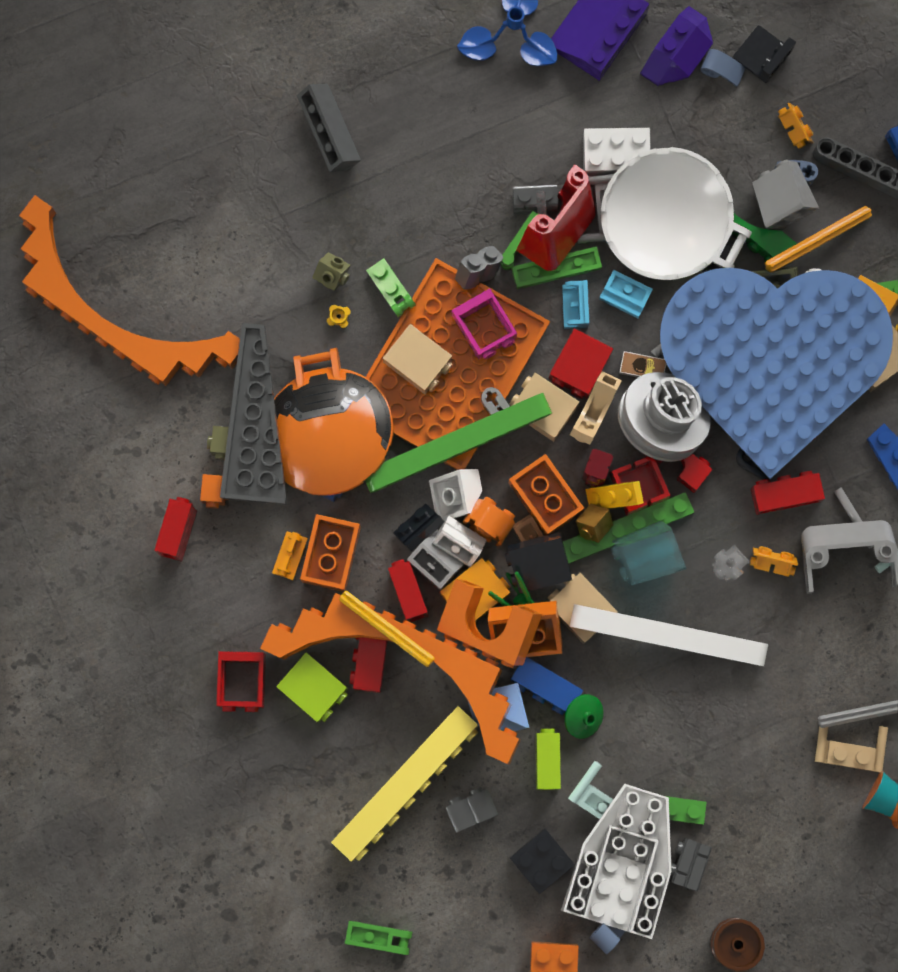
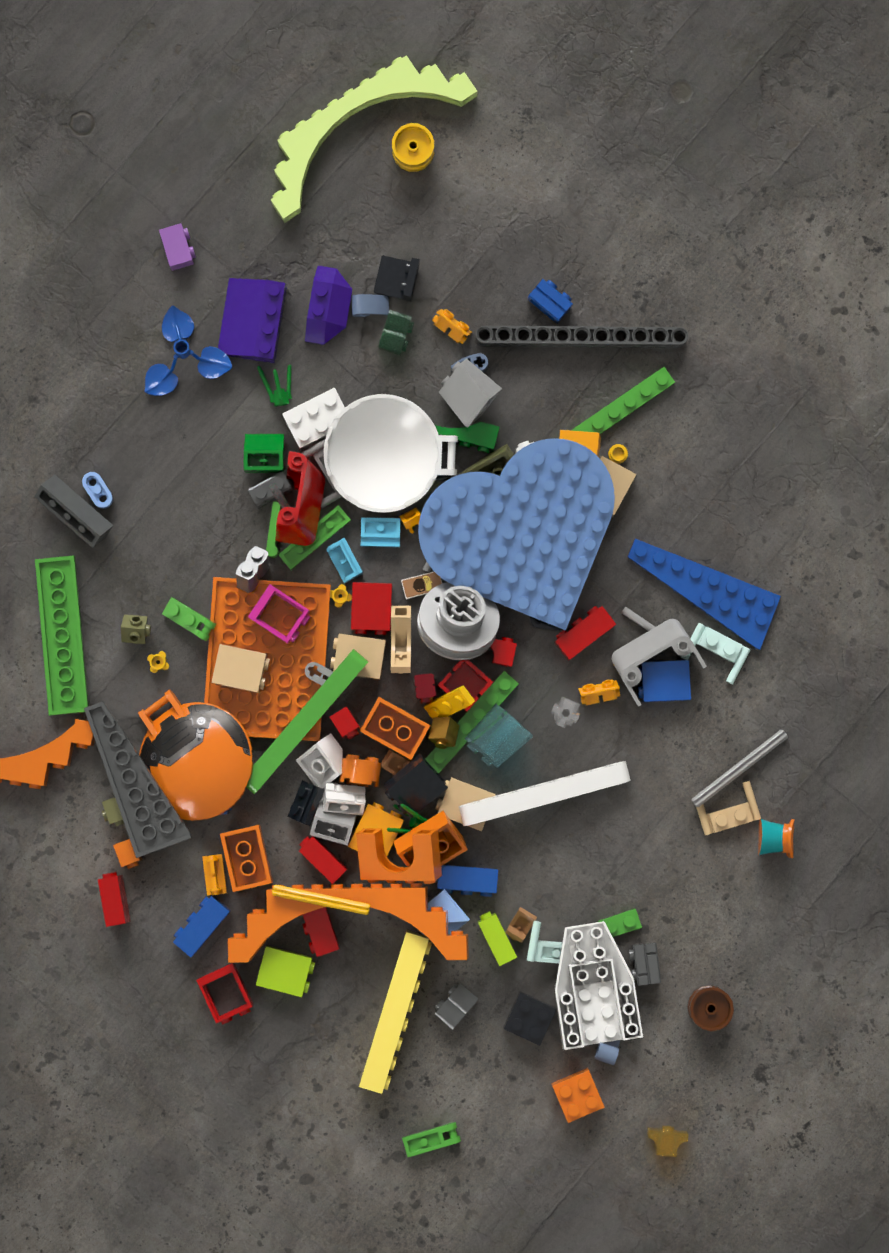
camera: 30 degrees left, 5 degrees up
(250, 600) = (201, 925): none -> blue brick
(256, 244) = (61, 635): none -> bright green plate
(362, 121) = (98, 490): none -> light blue plate
(498, 463) = (345, 723): none -> red brick
(545, 161) = (264, 453): none -> green slope
(558, 333) = (345, 596): none -> yellow plate
(577, 713) = (503, 892): green dish -> none
(578, 759) = (520, 925): none -> medium nougat bracket
(590, 115) = (279, 397): none -> green plant
(661, 295) = (410, 519): none -> light orange tile
(736, 105) = (395, 332): none -> clear green brick
(818, 239) = (513, 414): light orange axle -> none
(847, 582) = (665, 681): none -> blue brick

